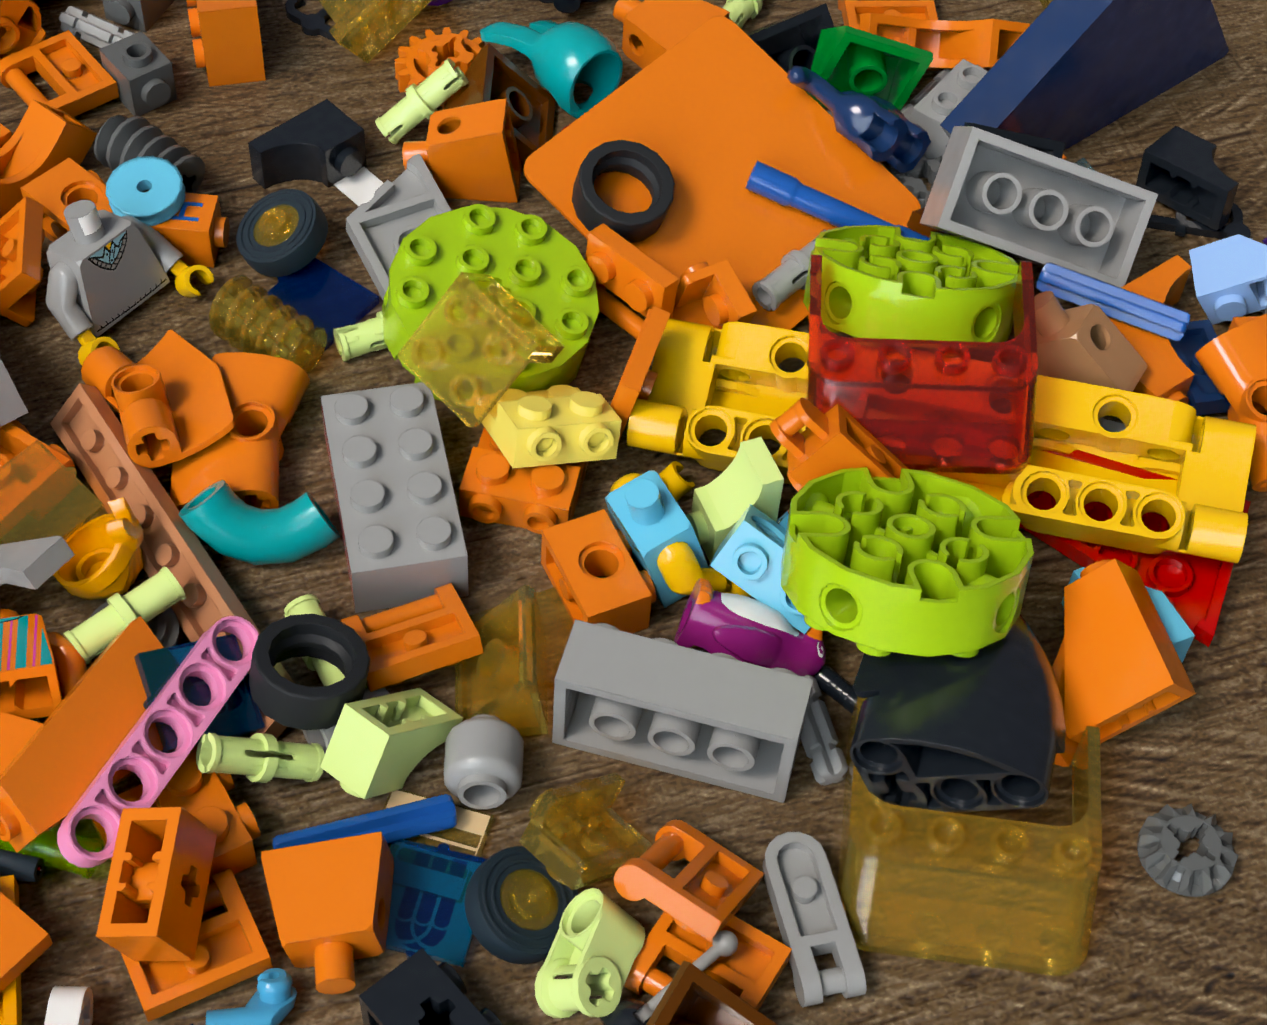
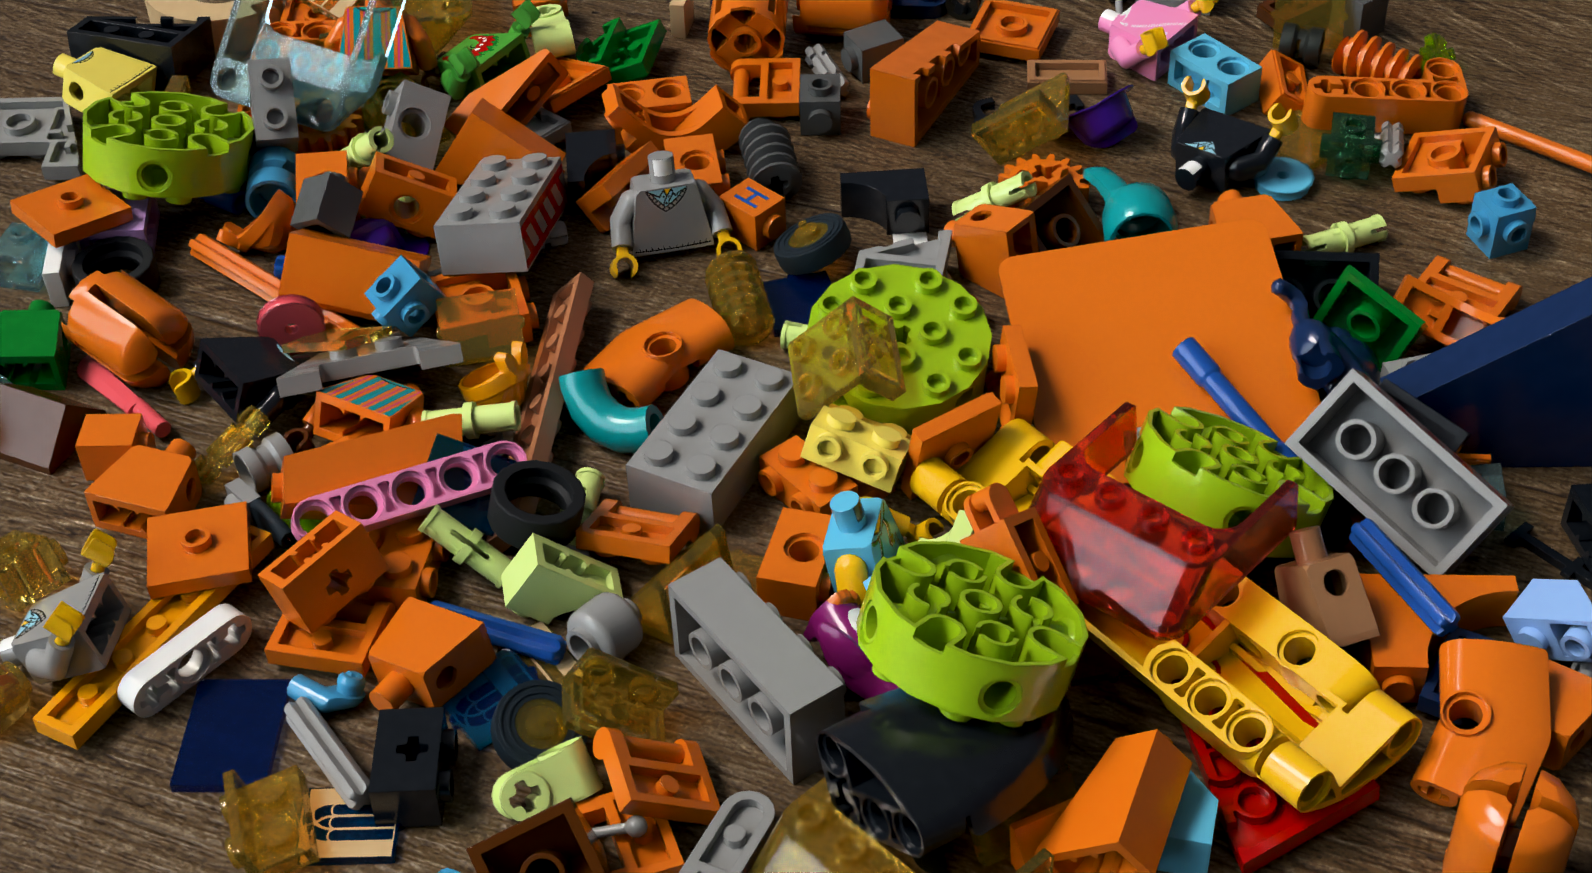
camera: 45 degrees right, 10 degrees down
(144, 173) = (735, 172): medium azure piece -> none
(166, 401) = (618, 310): orange panel -> none
(630, 159) = (1055, 281): black tyre -> none
(719, 289) = (1072, 408): orange bracket -> none

